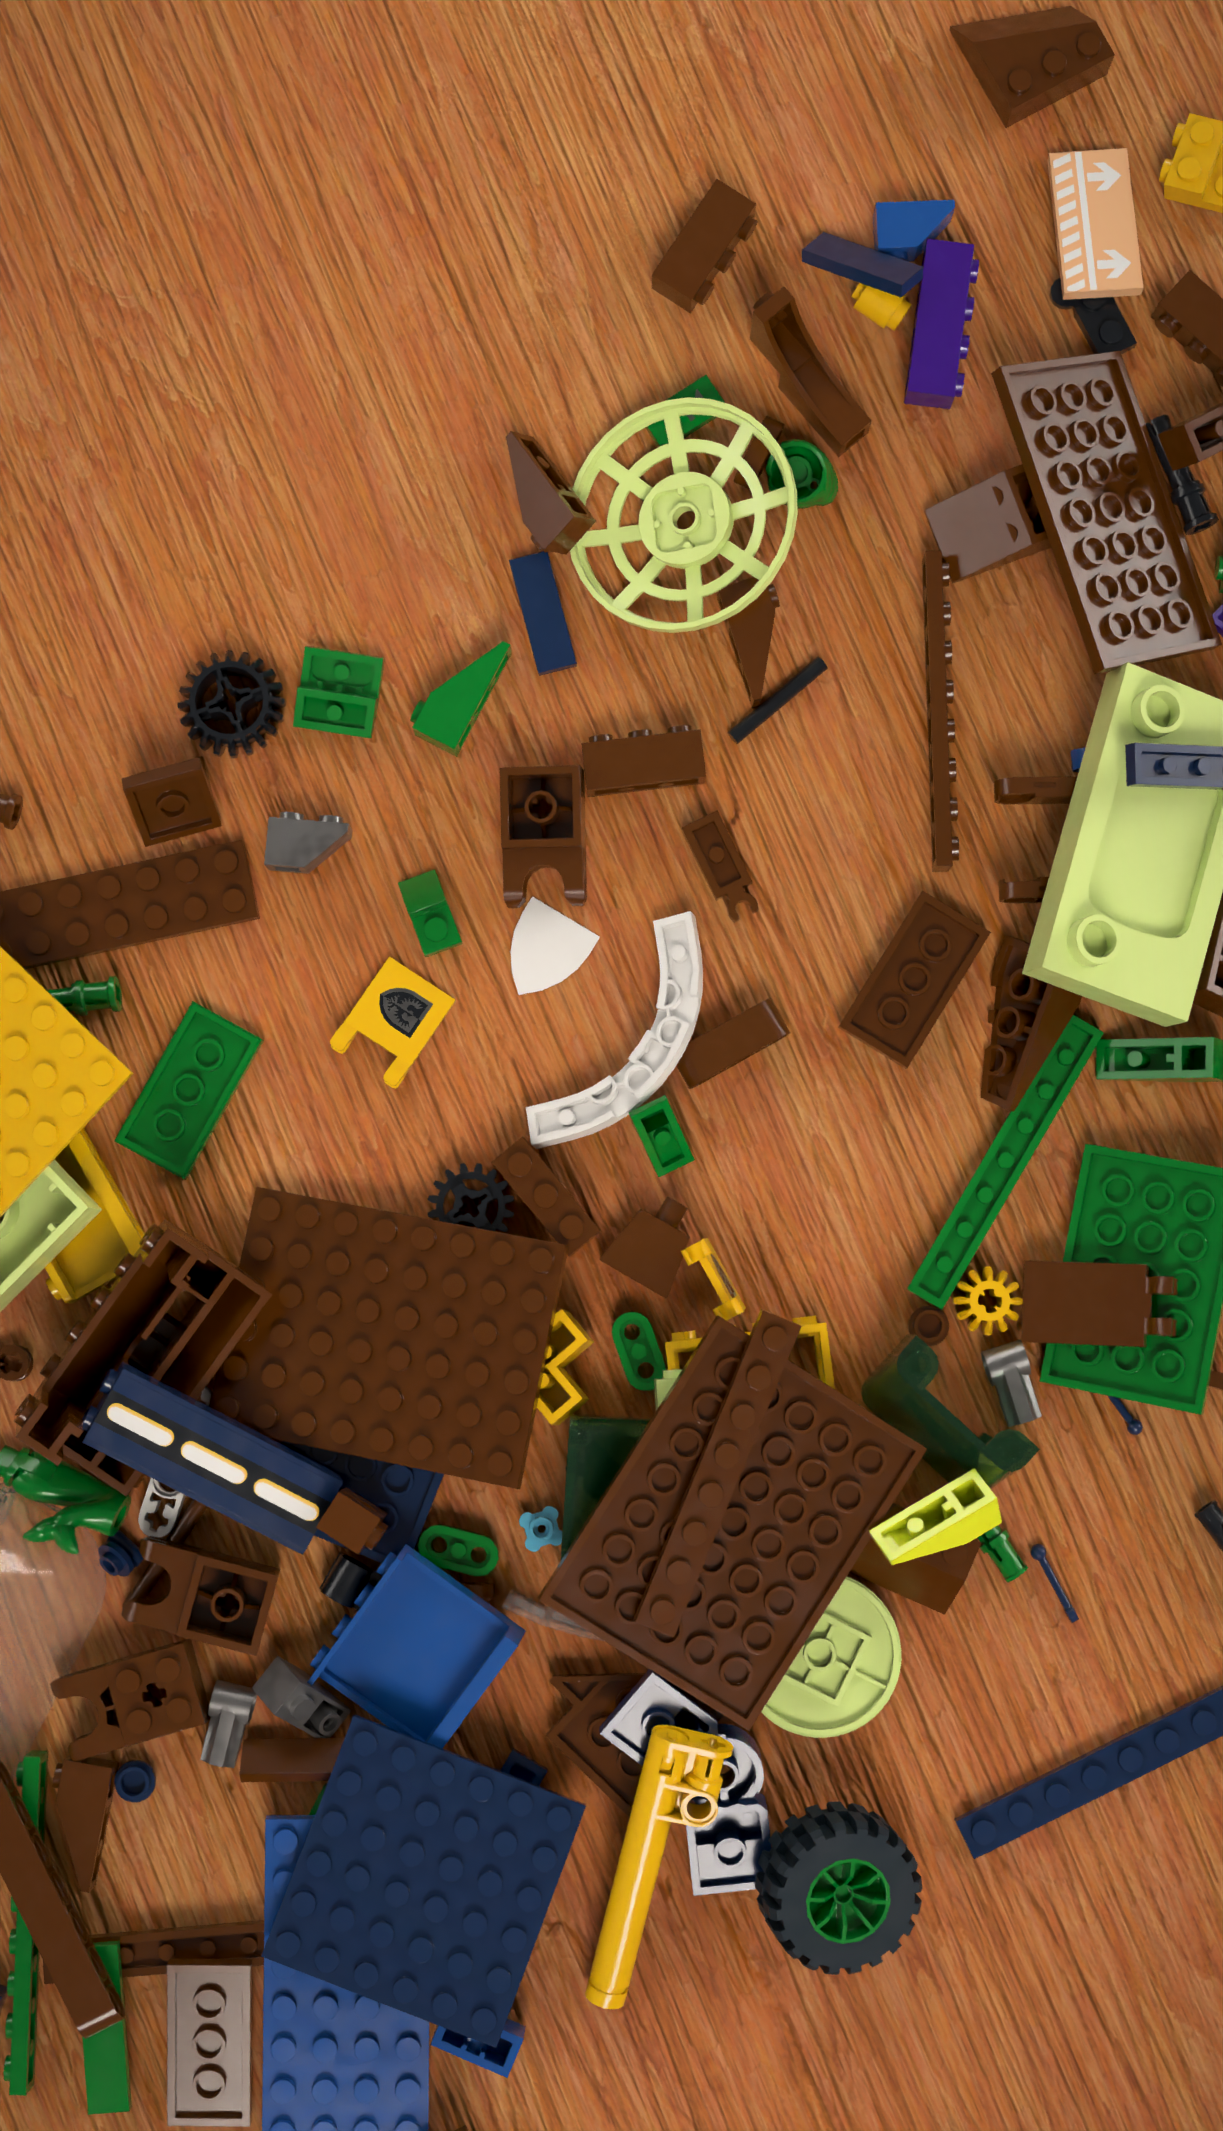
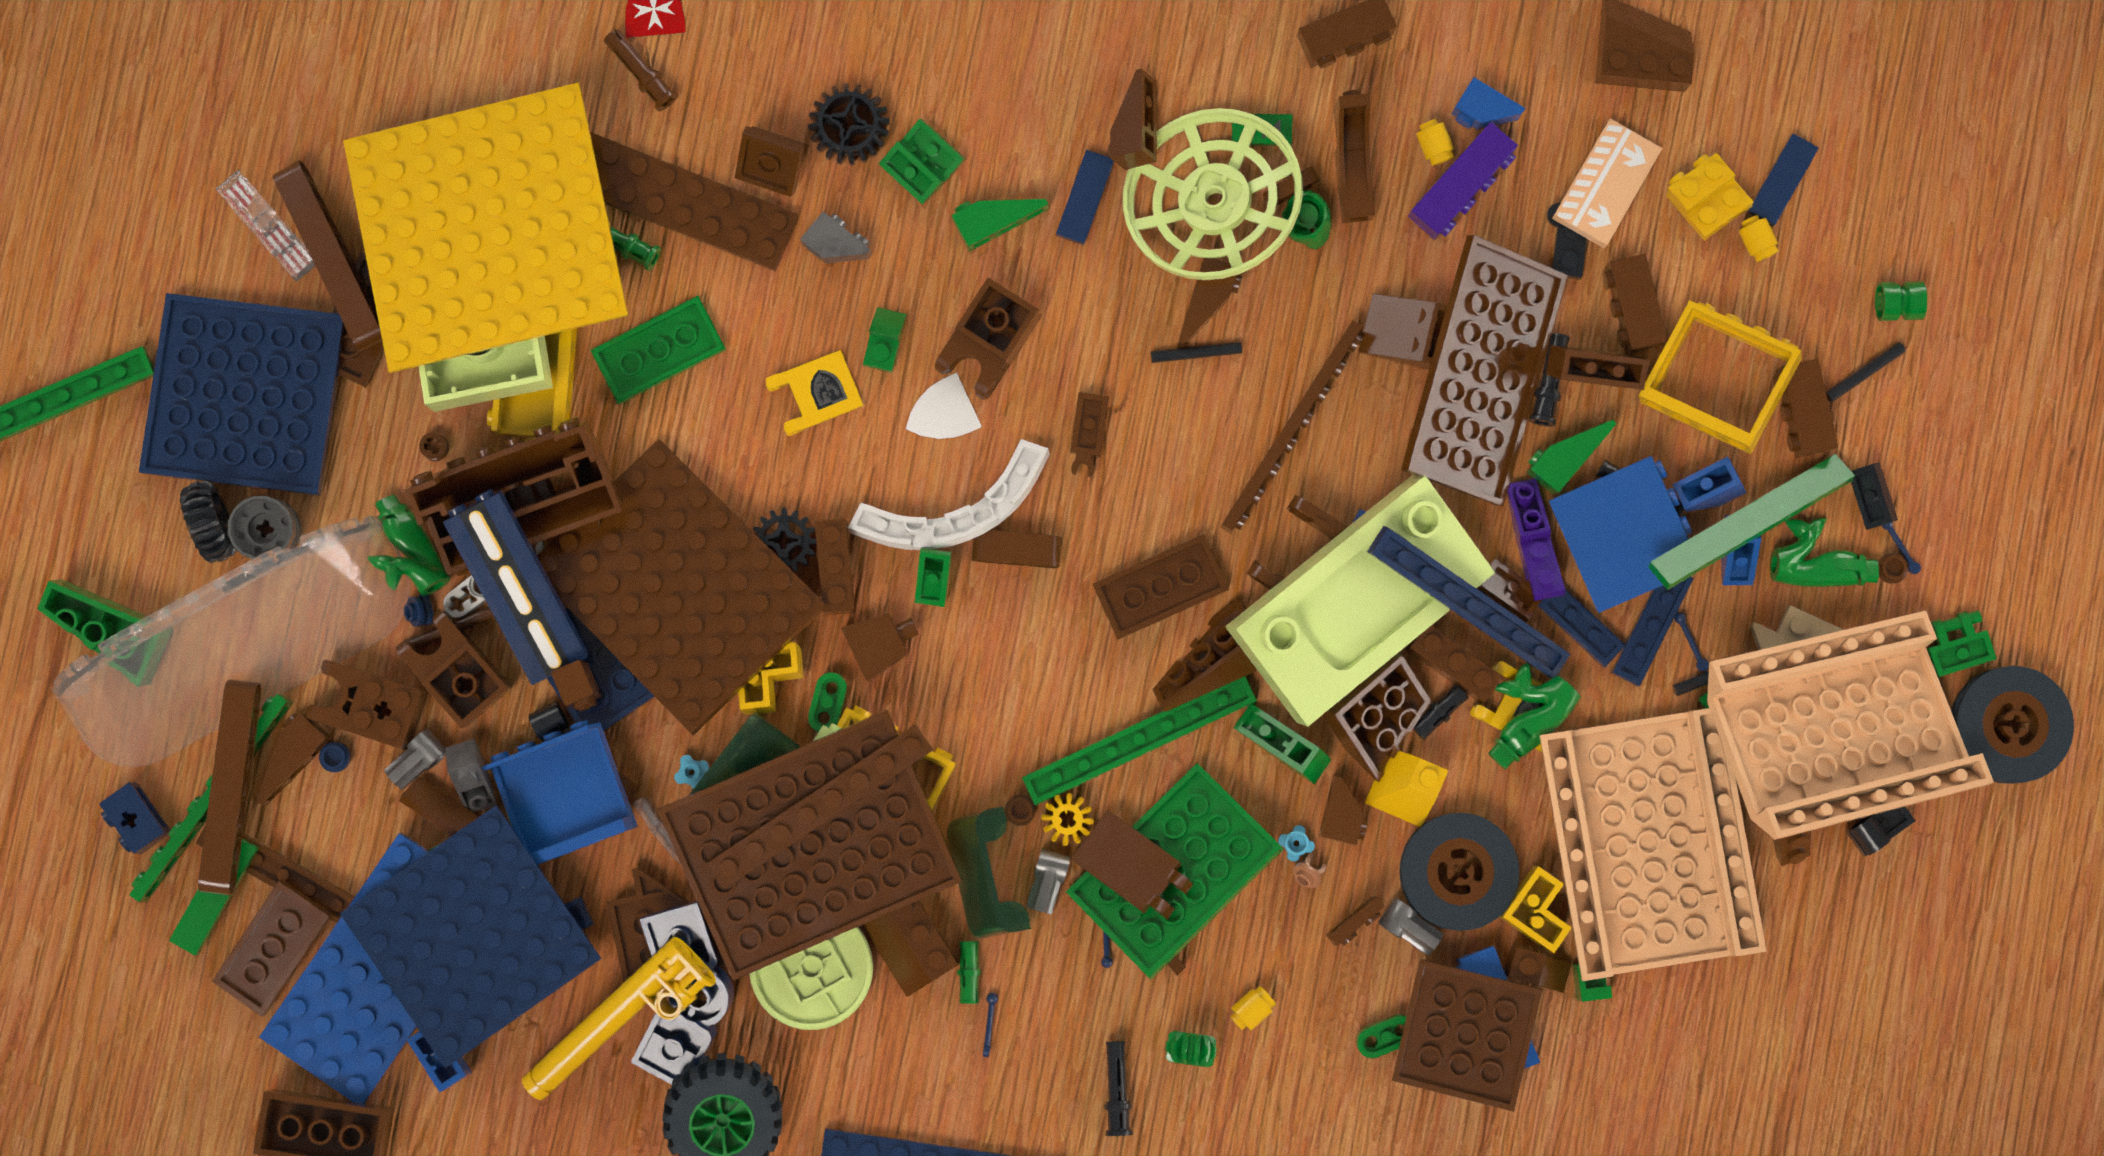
camera: 30 degrees right, 0 degrees up
(459, 1548) = (631, 750): green plate -> none
(643, 761) = (1083, 334): reddish brown brick -> none
(705, 1253) = (907, 688): yellow flag -> none
(862, 264) = (1438, 110): dark blue tile -> none
(940, 1520) = (940, 932): neon yellow slope -> none

